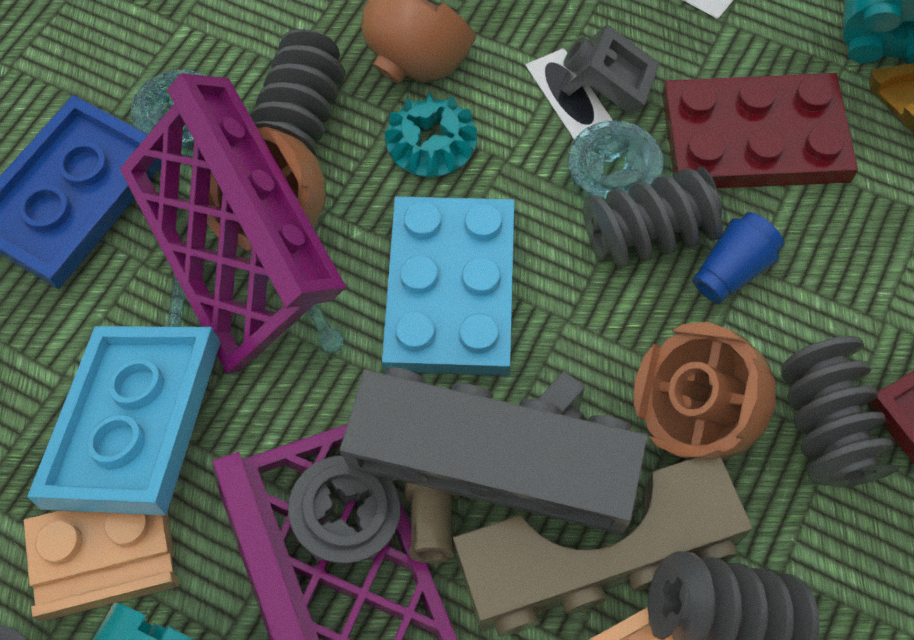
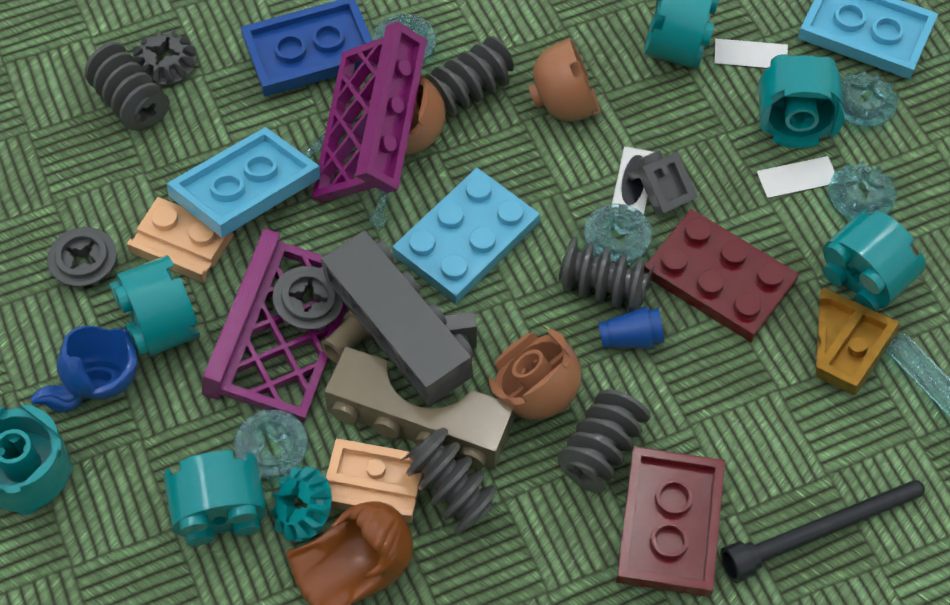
camera: 35 degrees right, 5 degrees down
(438, 154) = (521, 160): teal gear -> none

